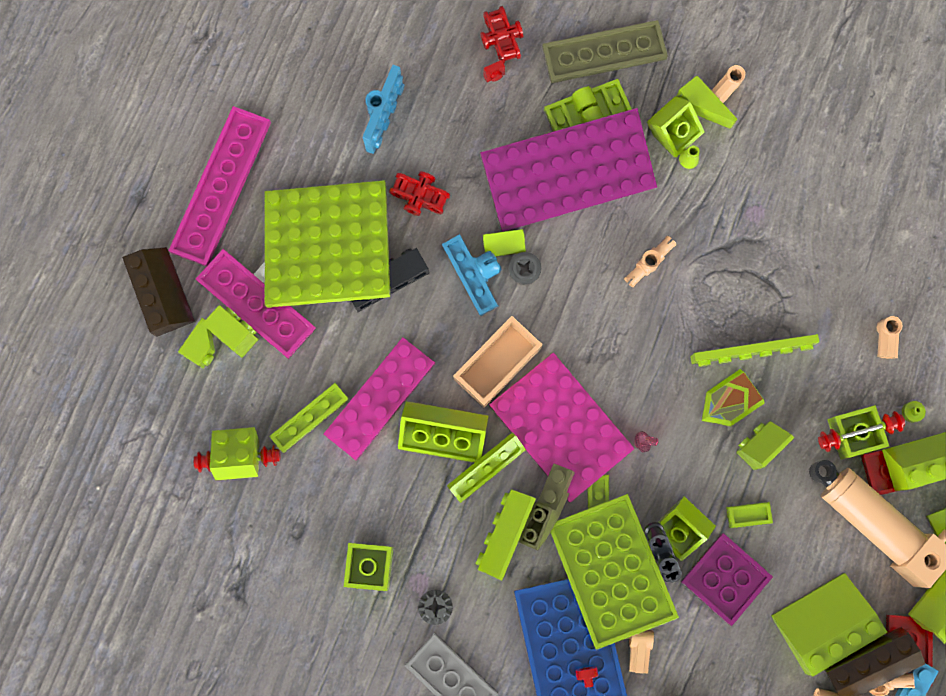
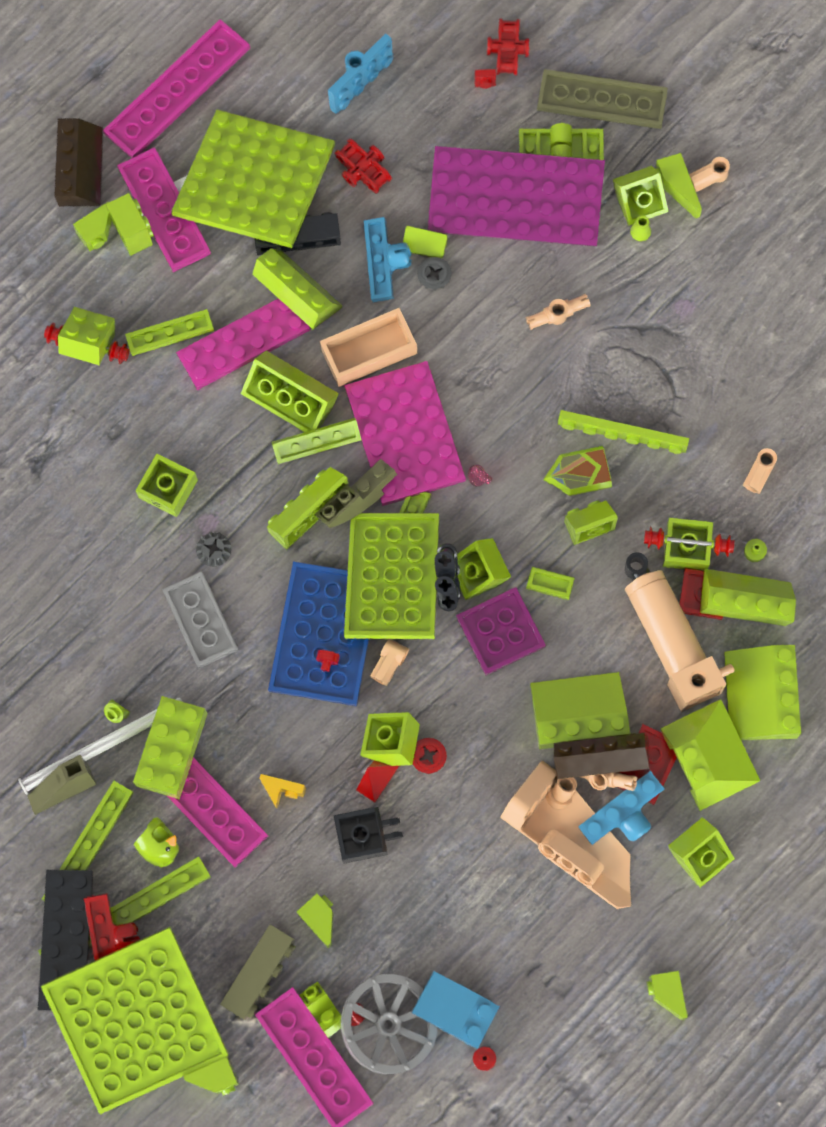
camera: 25 degrees right, 5 degrees down
(407, 331) = (295, 287): none -> lime slope

